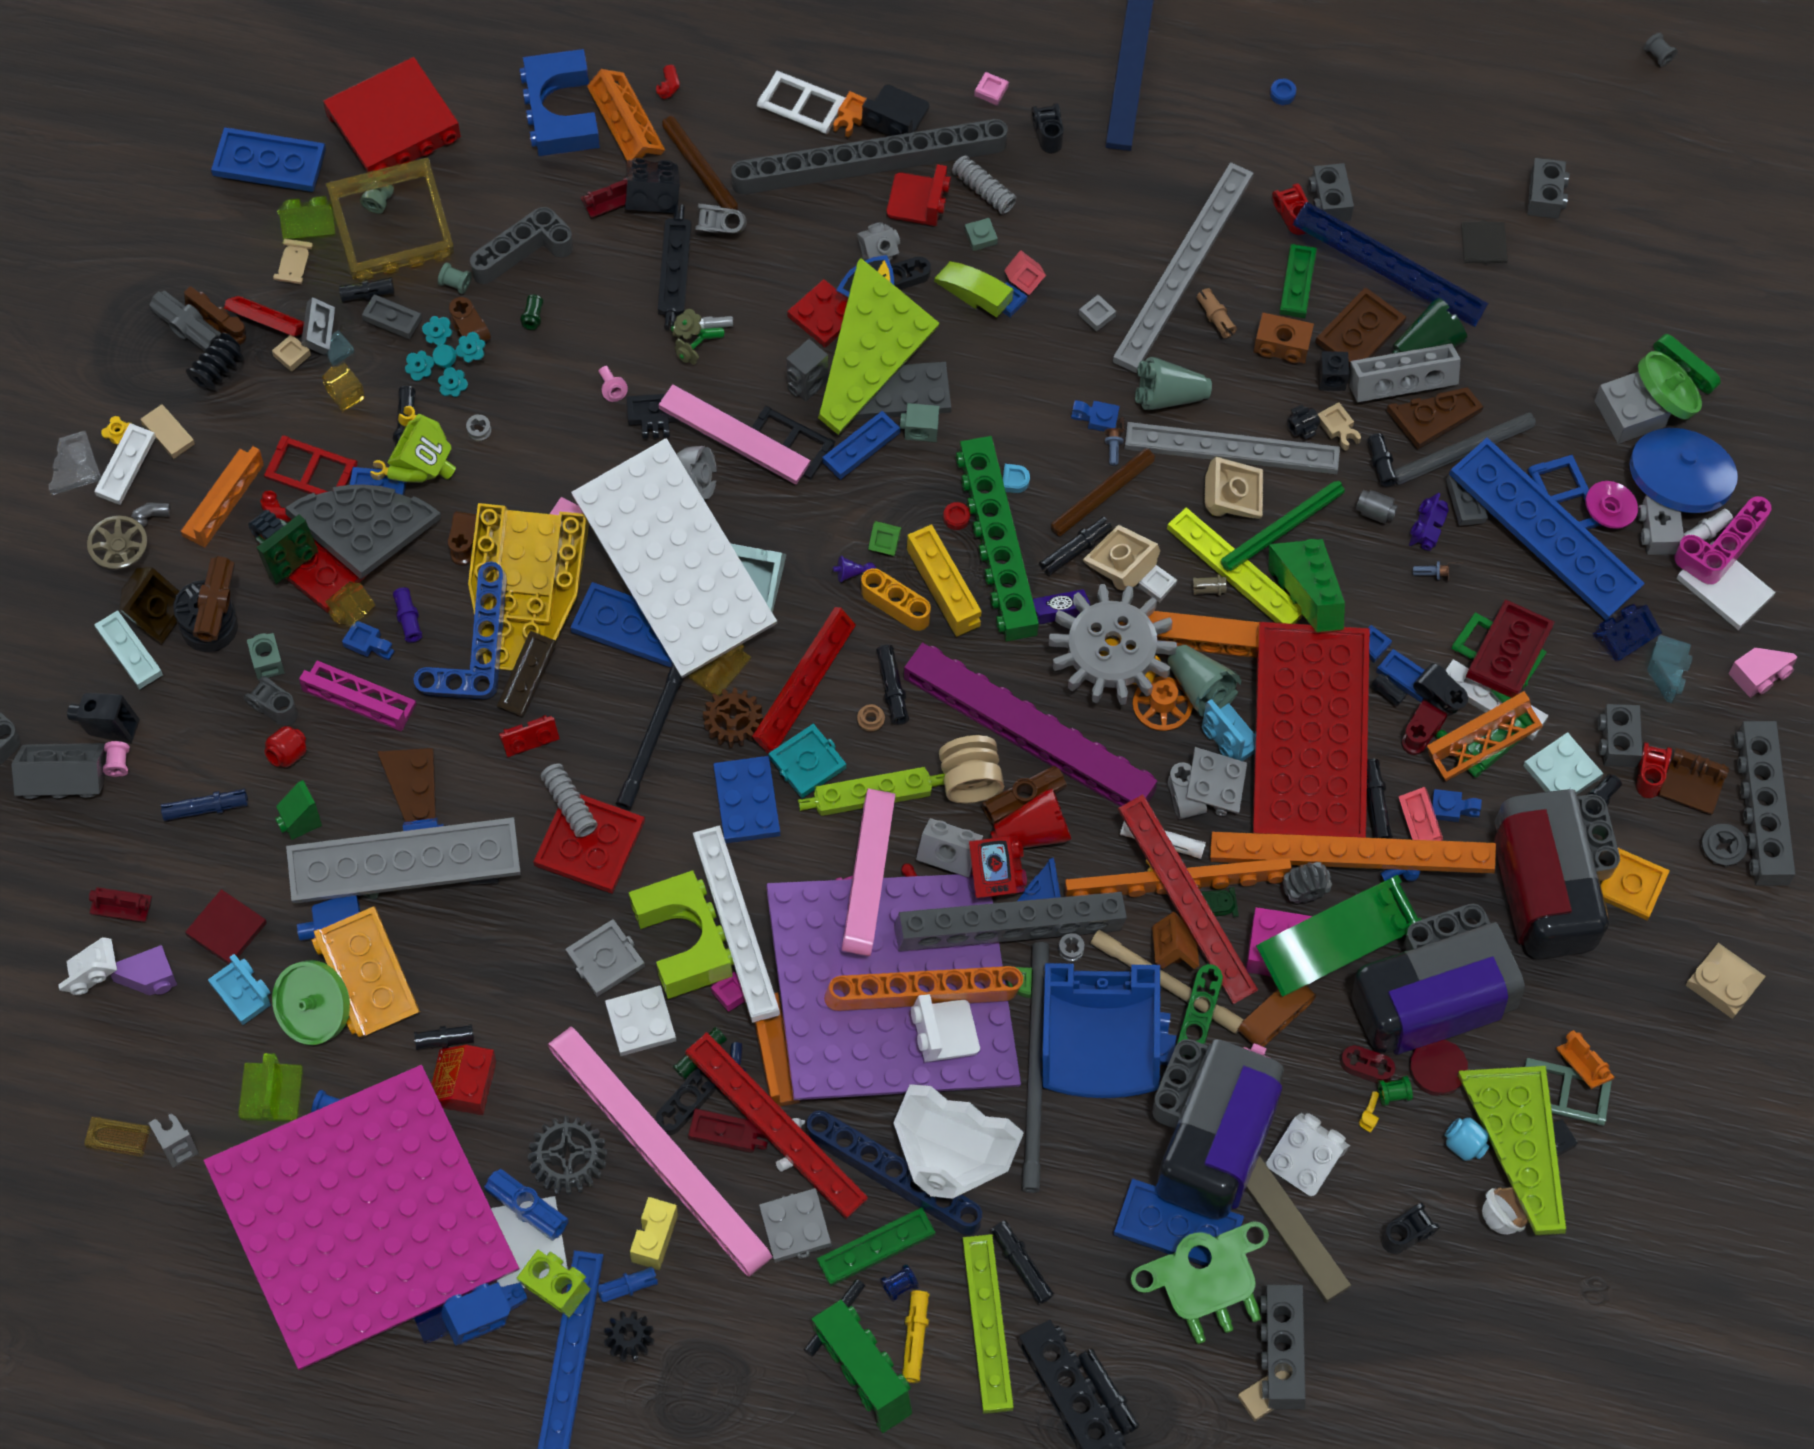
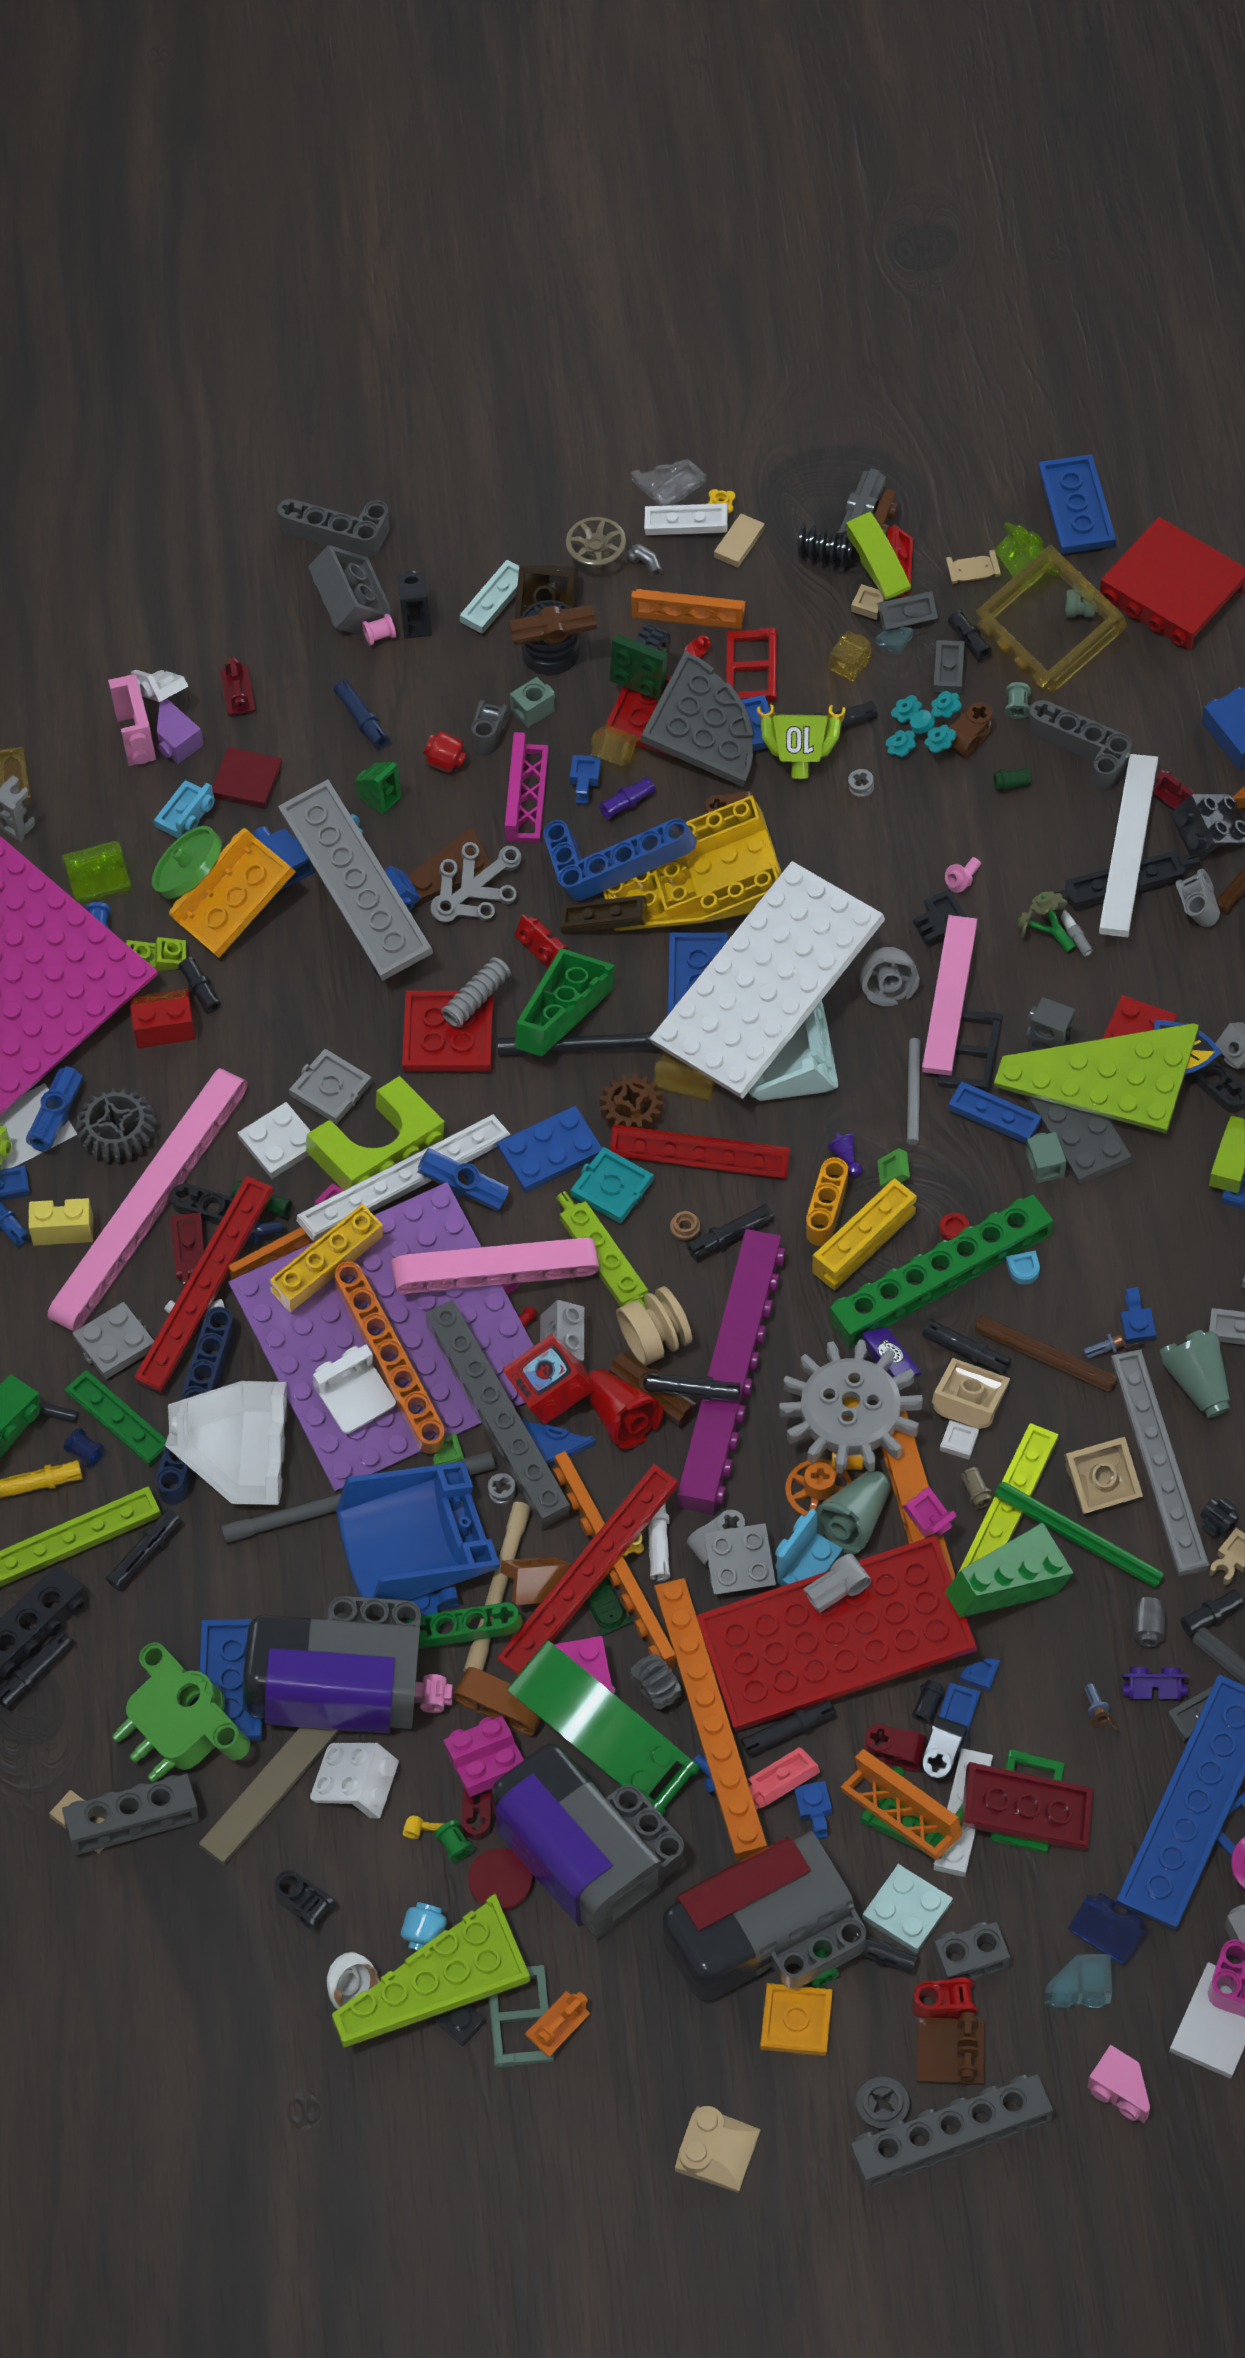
camera: 75 degrees right, 5 degrees down
(98, 995) = (129, 705): none -> bright pink window
(260, 321) = (877, 555): none -> lime slope
(391, 1060) = (163, 954): none -> lime slope
(442, 770) = (472, 886): none -> light grey plant
(606, 731) = (562, 1000): none -> green wedge
(648, 249) = (1128, 845): none -> white tile
(762, 871) = (479, 1187): none -> blue piece
(810, 498) = (913, 1091): none -> light grey bar
(814, 1003) = (319, 1261): none -> yellow brick
(1053, 747) = (695, 1387): none -> black pin
(1237, 621) = (929, 1513): none -> dark pink bracket
(1276, 702) = (843, 1579): none -> light grey piece
(1327, 1039) = (482, 1754): none -> dark pink plate

